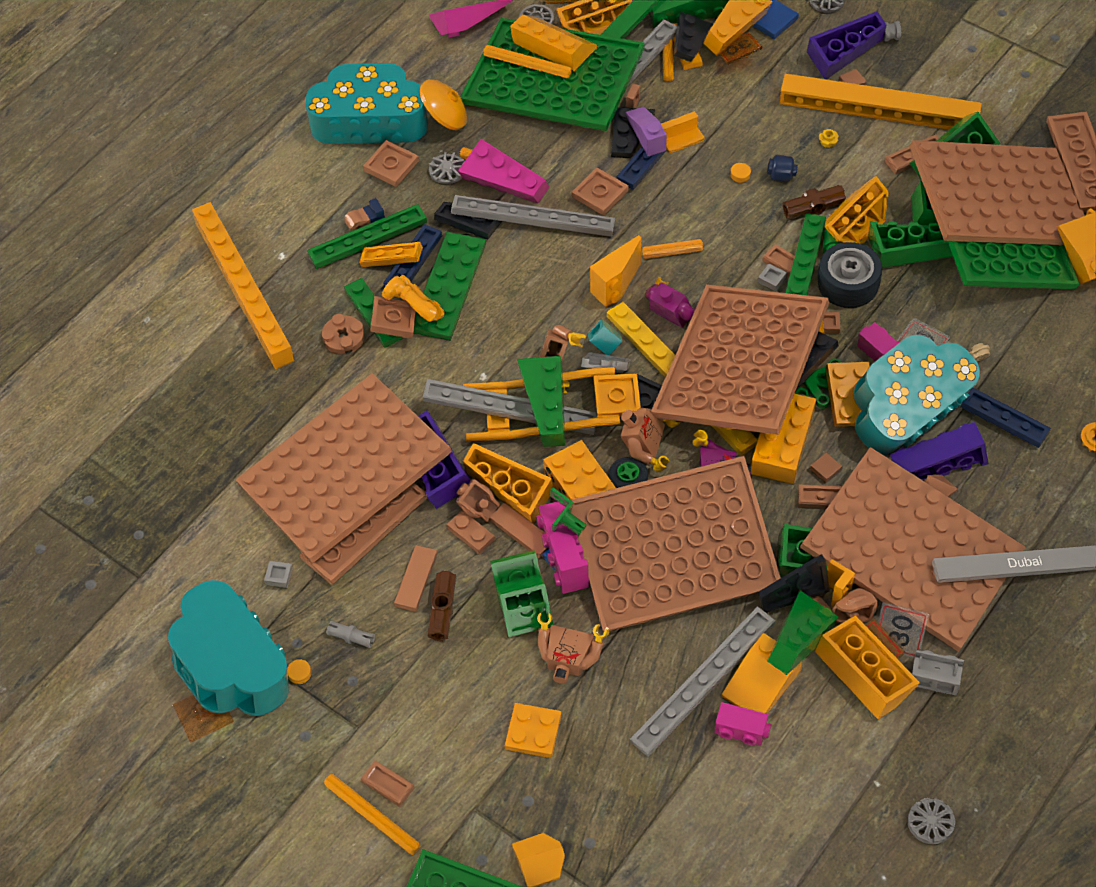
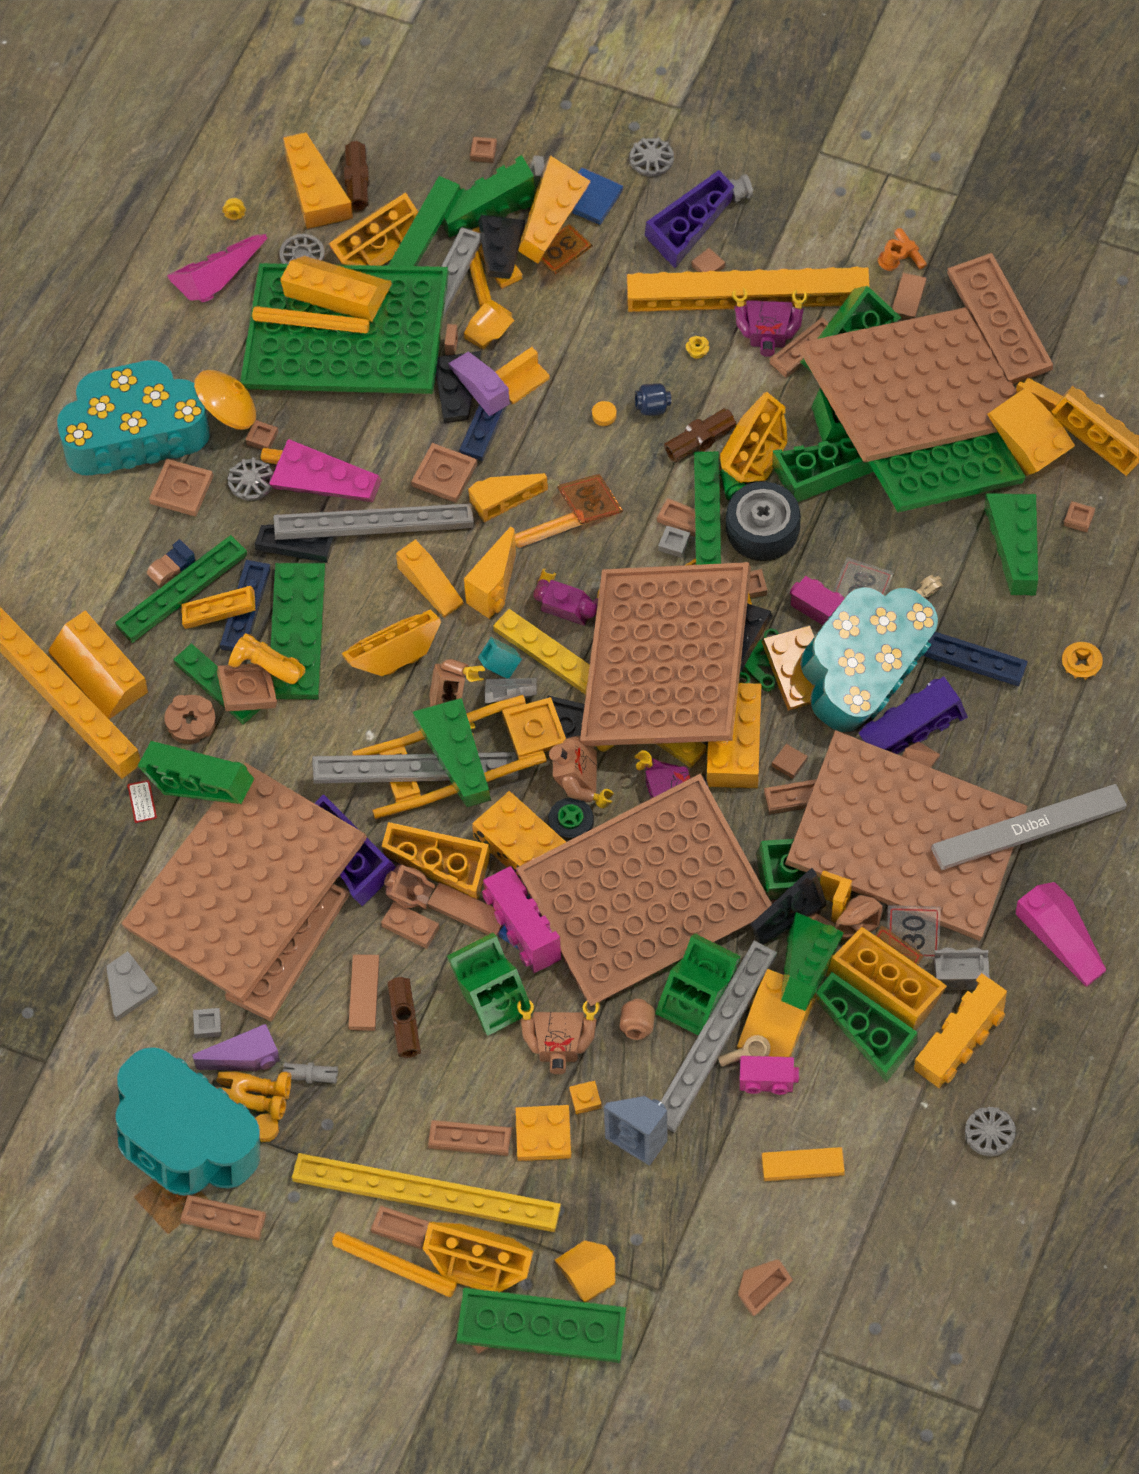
camera: 15 degrees left, 5 degrees up
(225, 530) = (128, 985): none -> light grey wing
(240, 739) = (223, 1217): none -> nougat tile
(283, 280) = (97, 665): none -> light orange slope
(285, 389) = (142, 801): none -> white sticker
(290, 629) = (242, 1083): none -> light orange piece
(300, 604) = (243, 1052): none -> medium lavender slope
(327, 373) = (195, 774): none -> green wedge
(419, 759) = (426, 1192): none -> yellow plate
(442, 823) = (476, 1256): none -> light orange wedge
(465, 138) = (261, 435): none -> nougat tile
(469, 720) = (469, 1138): none -> nougat tile
(521, 311) = (394, 645): none -> light orange wedge
(564, 265) = (428, 578): none -> light orange slope
(566, 517) = (521, 888): green bracket -> none
(578, 708) = (585, 1097): none -> light orange plate
(613, 742) = (637, 1126): none -> sand blue slope
(639, 651) = (637, 1019): none -> nougat head
(642, 215) = (503, 493): none -> light orange slope
(664, 91) = (488, 324): none -> light orange slope
(698, 632) = (697, 984): none -> green bracket
(711, 232) = (590, 498): none -> clear orange piece
(736, 697) = (754, 1046): none -> tan plate
(754, 810) = (803, 1164): none -> light orange tile
(845, 707) = (872, 1029): none -> green wedge
(889, 129) = (767, 322): none -> magenta torso
(925, 726) = (962, 1032): none -> light orange wedge
(1010, 96) = (900, 249): none -> orange piece
(1011, 130) = (909, 296): none -> nougat tile
(1034, 657) = (1059, 926): none -> dark pink wedge
(1061, 327) = (1015, 533): none -> green wedge

